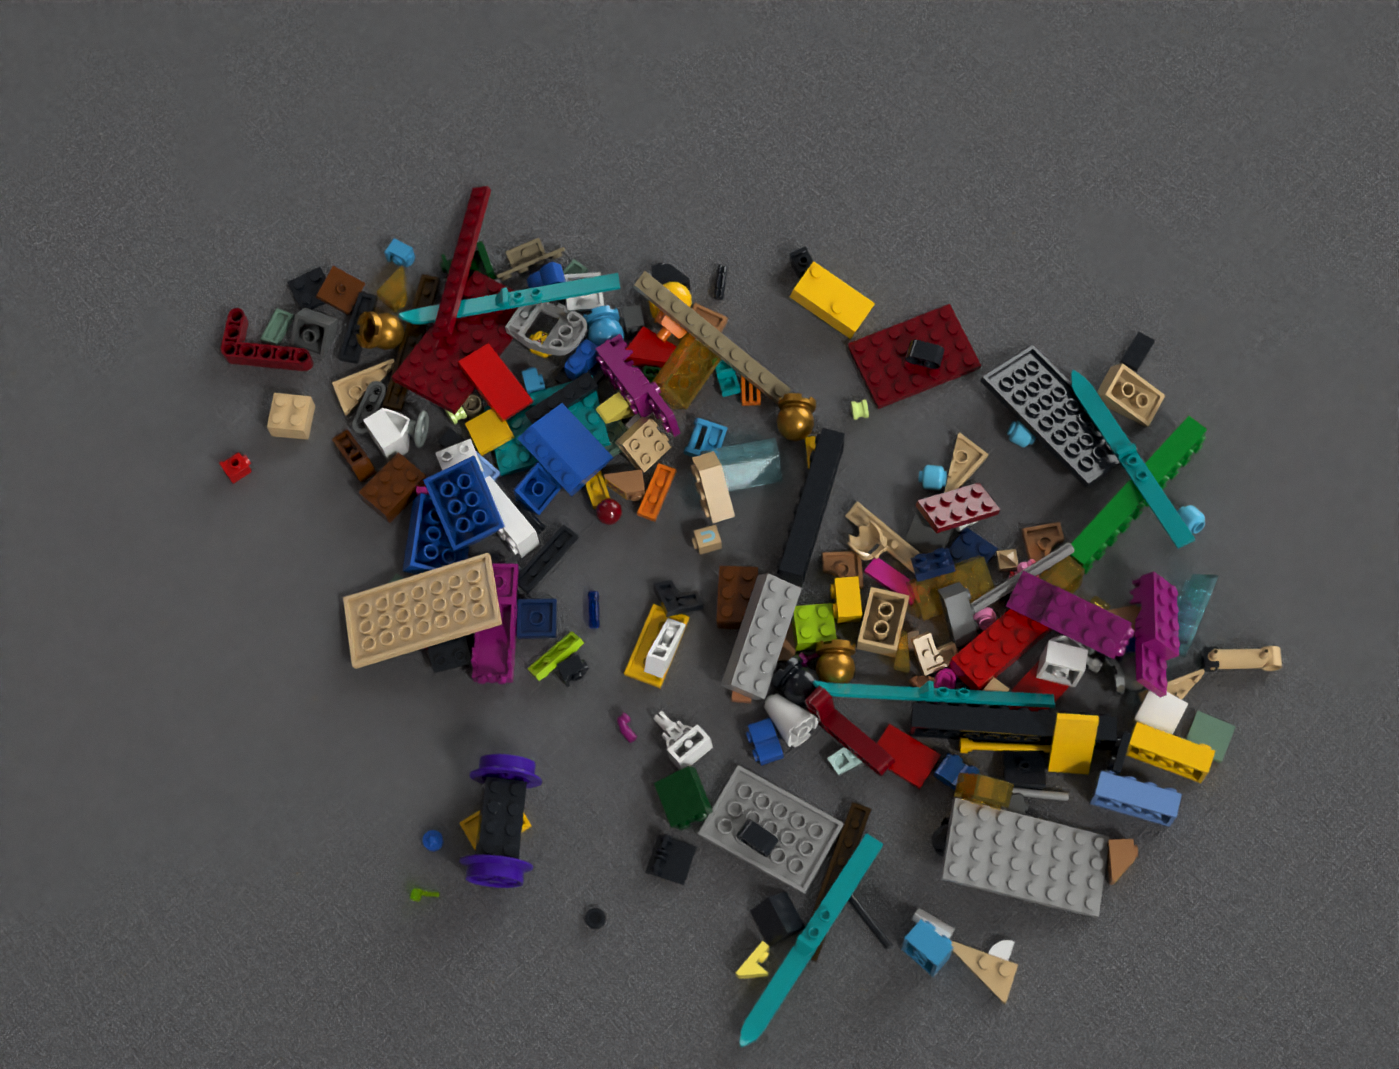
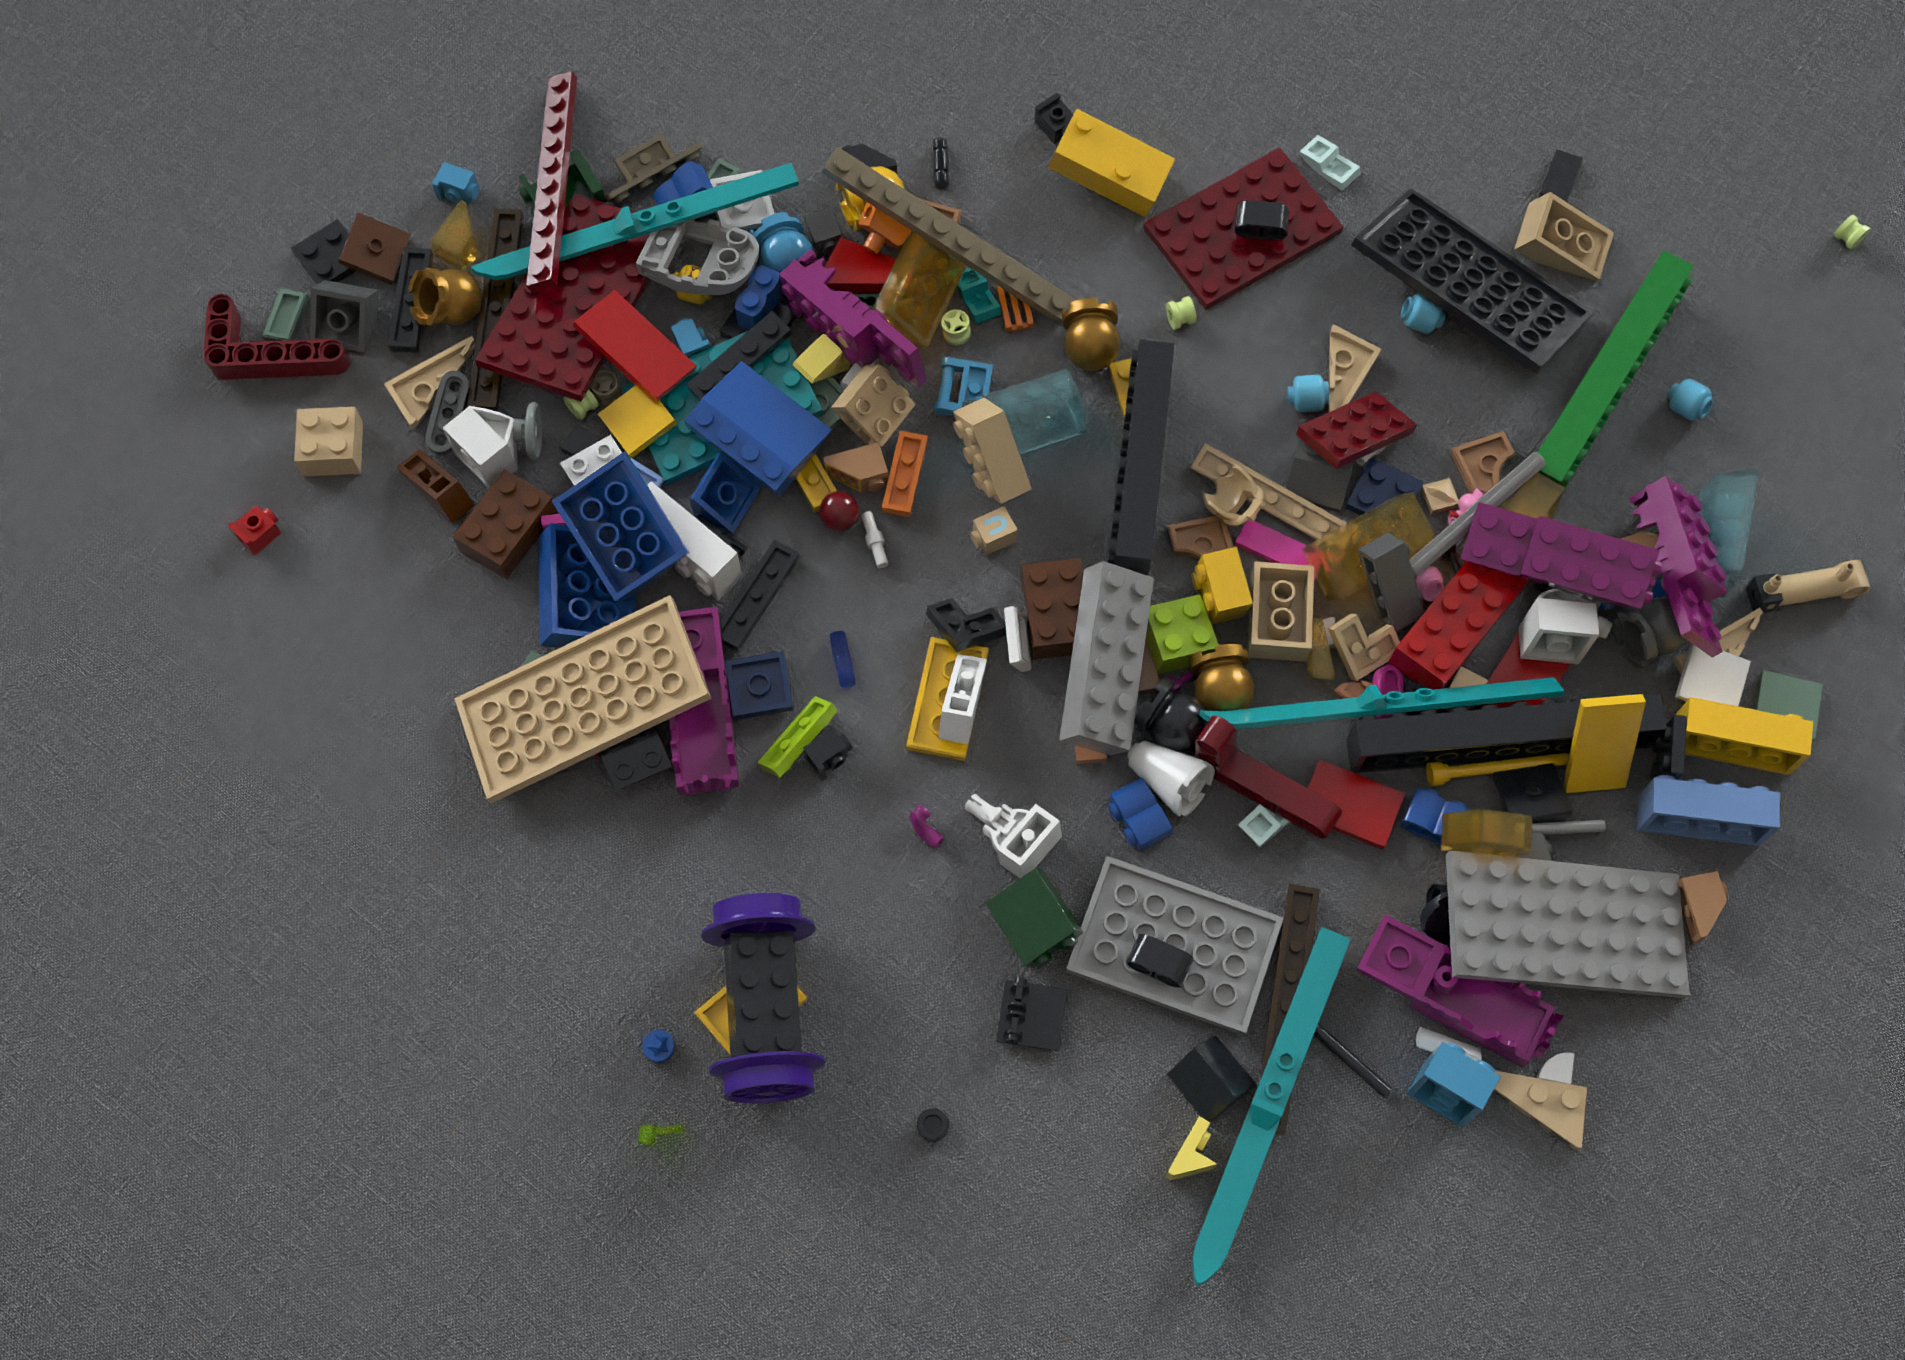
camera: 15 degrees left, 0 degrees up
(629, 533) = (874, 539): none -> white bar
(708, 393) = (953, 320): none -> yellowish green wheel
(708, 613) = (1017, 639): none -> white tile
(932, 564) = (1339, 515): dark blue plate -> none
(964, 906) = (1491, 1013): none -> magenta piece
(981, 319) = (1327, 162): none -> light aqua slope
(1131, 461) = (1597, 326): teal piece -> none
(1329, 418) = (1851, 232): none -> yellowish green wheel

